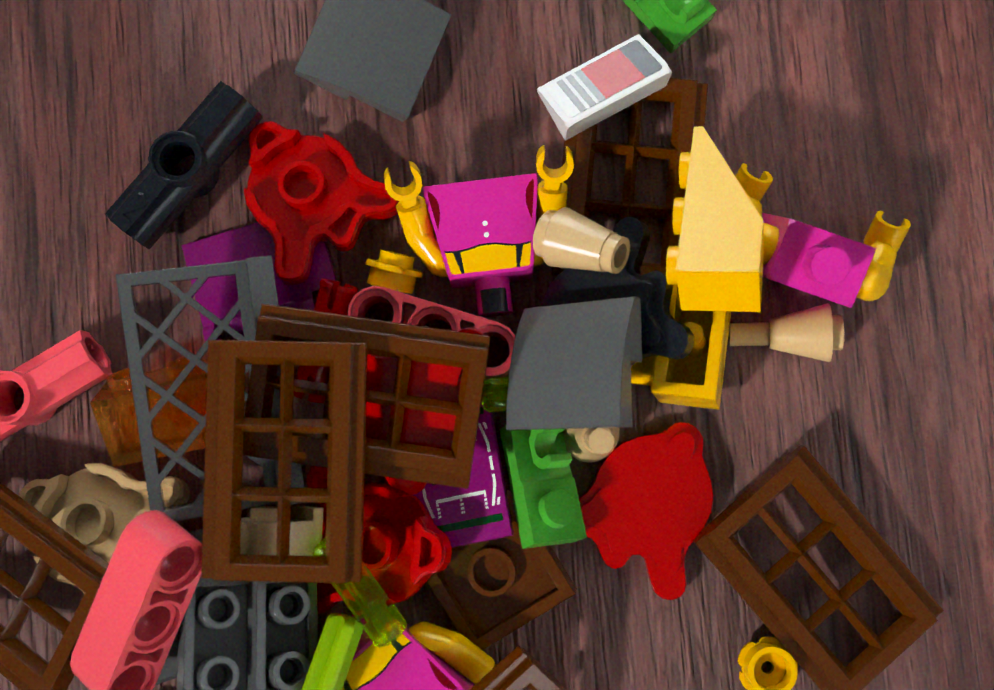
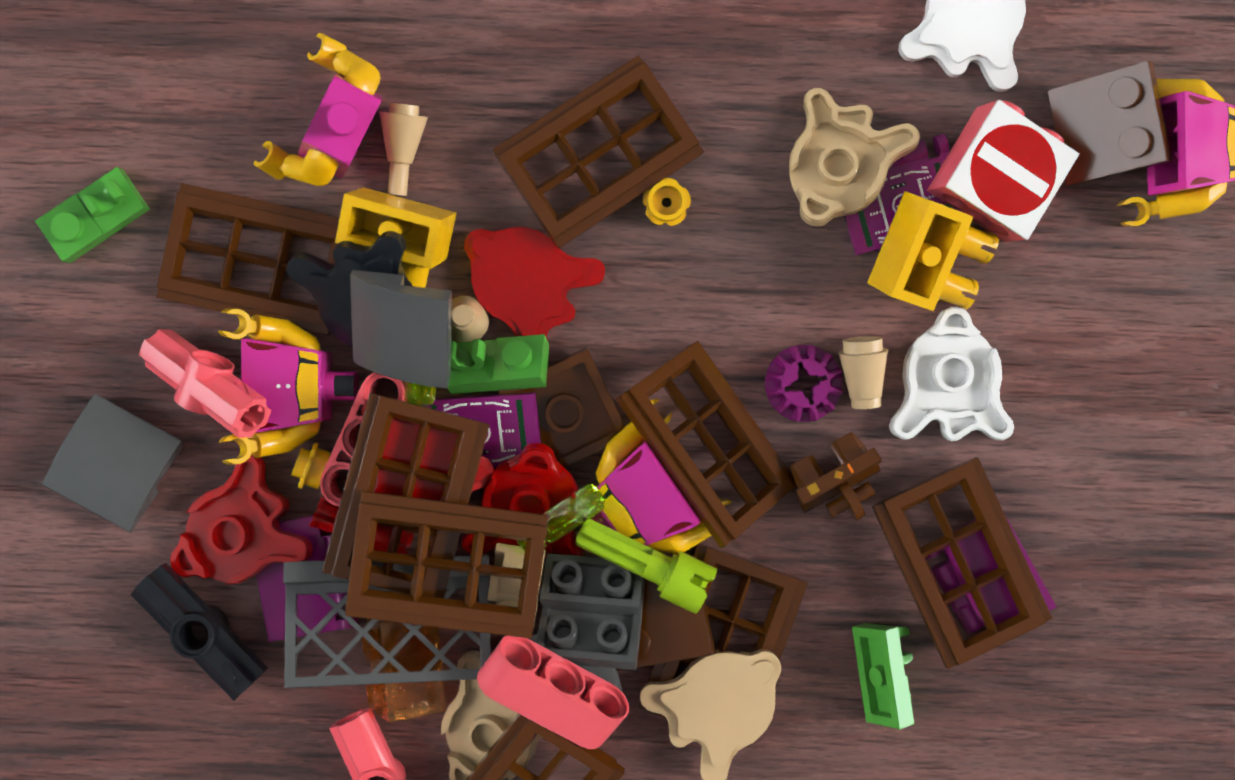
camera: 90 degrees left, 5 degrees up
(477, 139) = (205, 383): none -> coral piece
(577, 242) = (303, 312): tan cone -> none
(604, 86) = (173, 272): slope -> none
(719, 234) = (310, 200): yellow slope -> none

